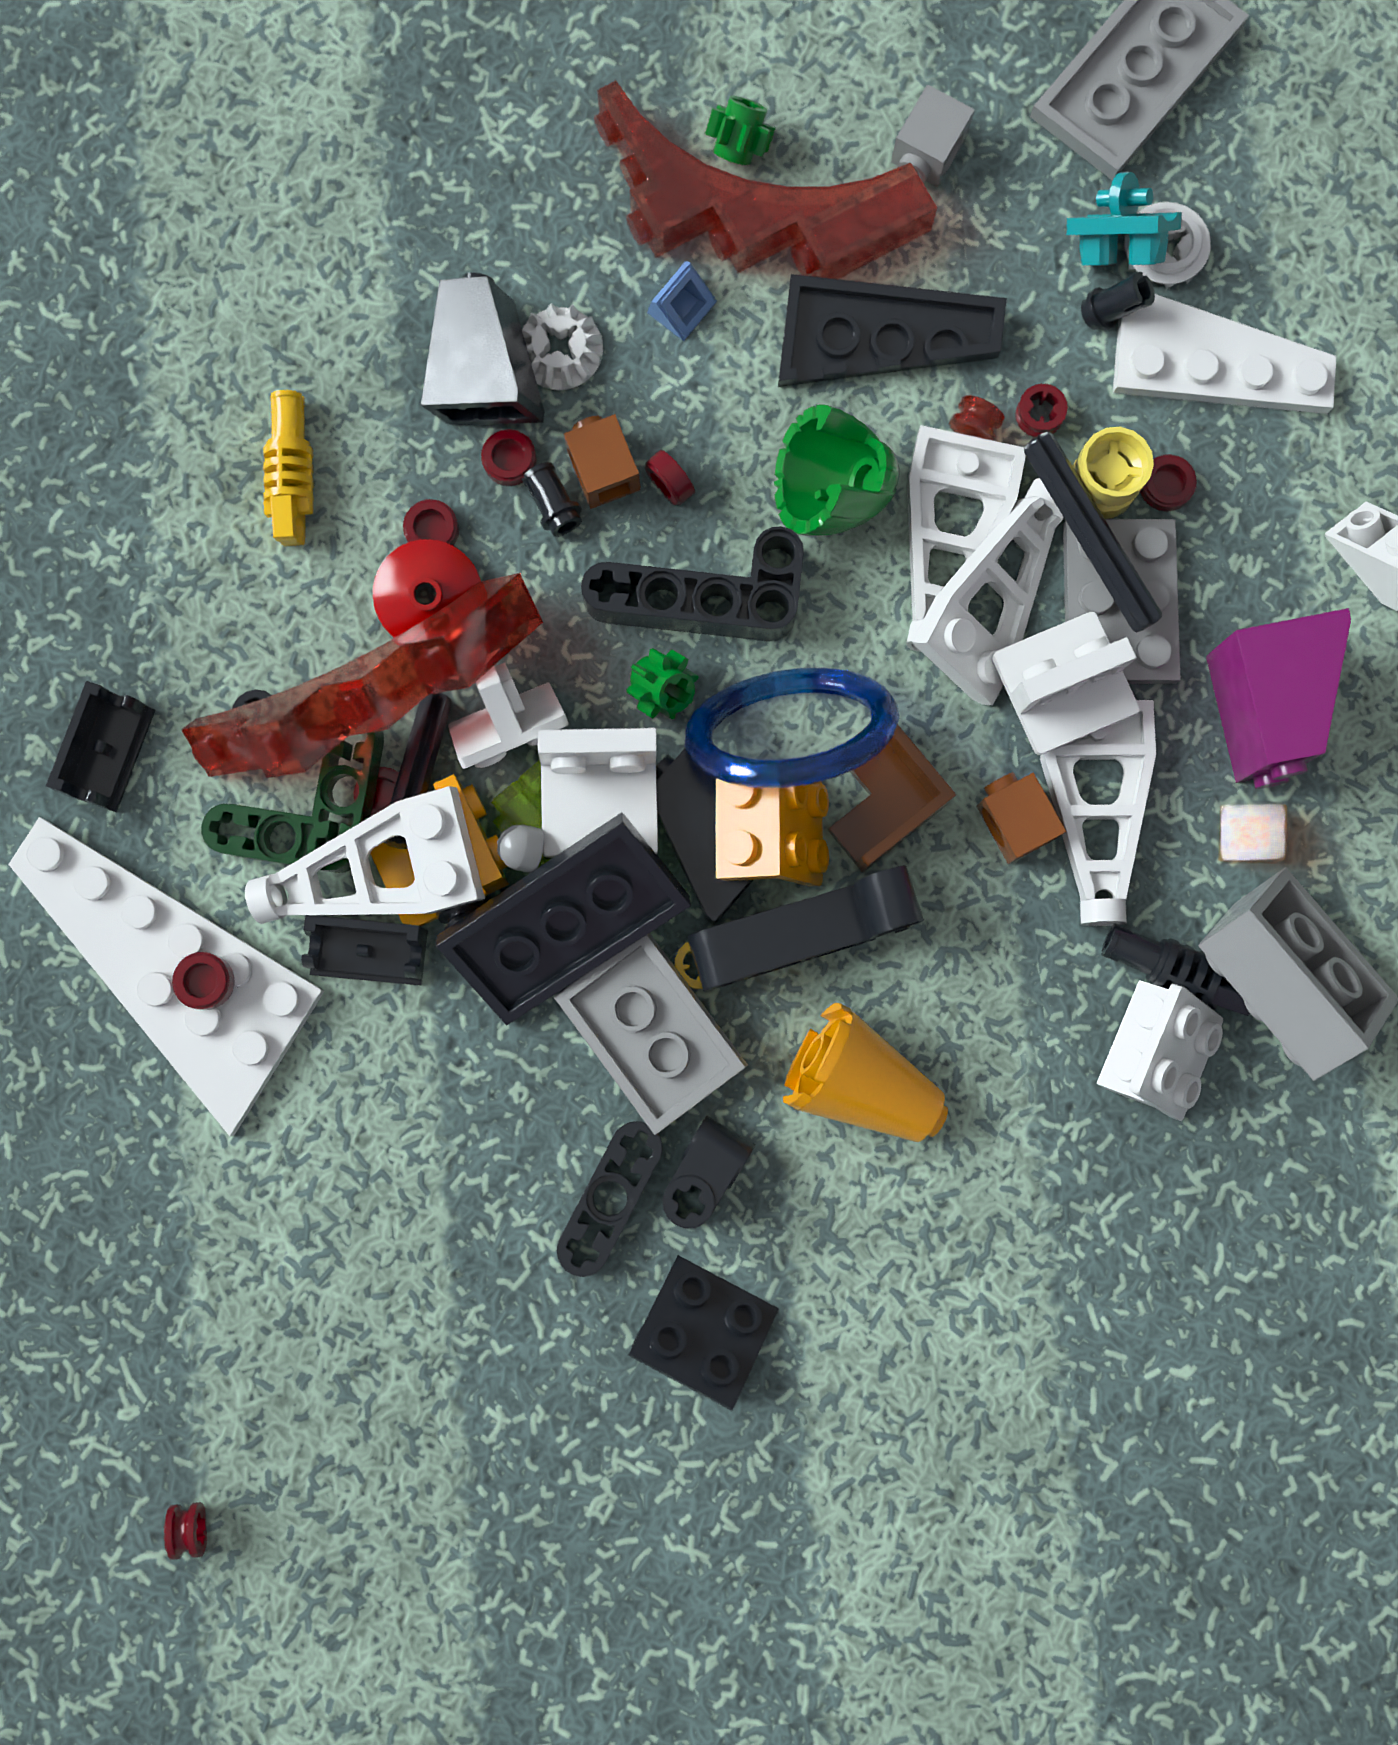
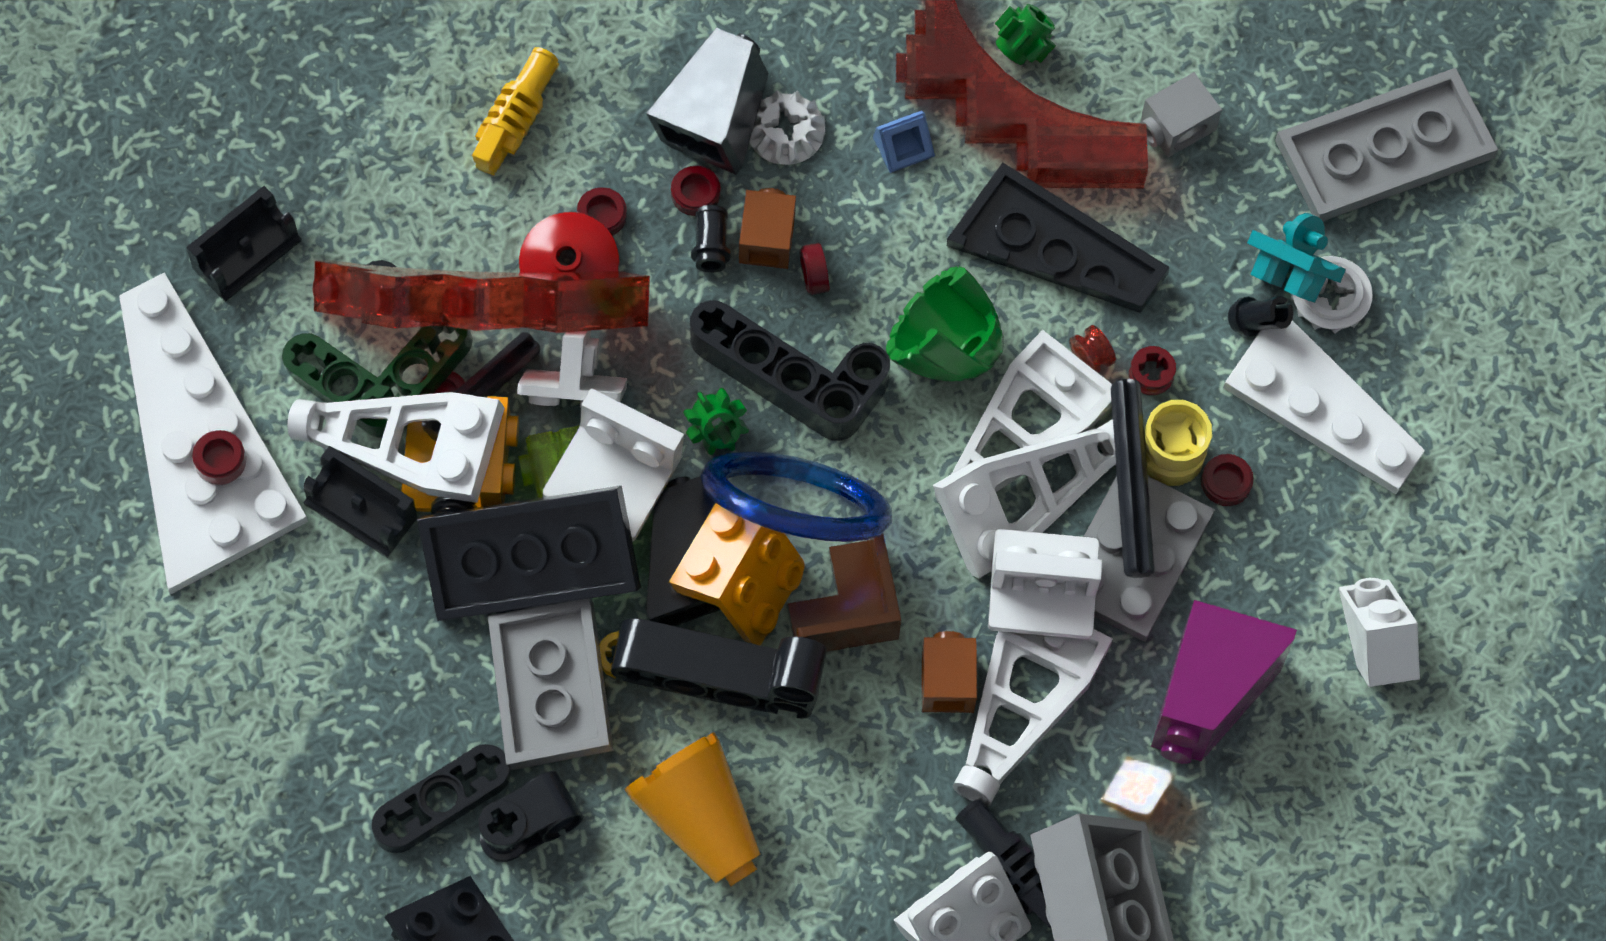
camera: 25 degrees right, 15 degrees down
(521, 847) = (527, 477): light grey hinge -> none

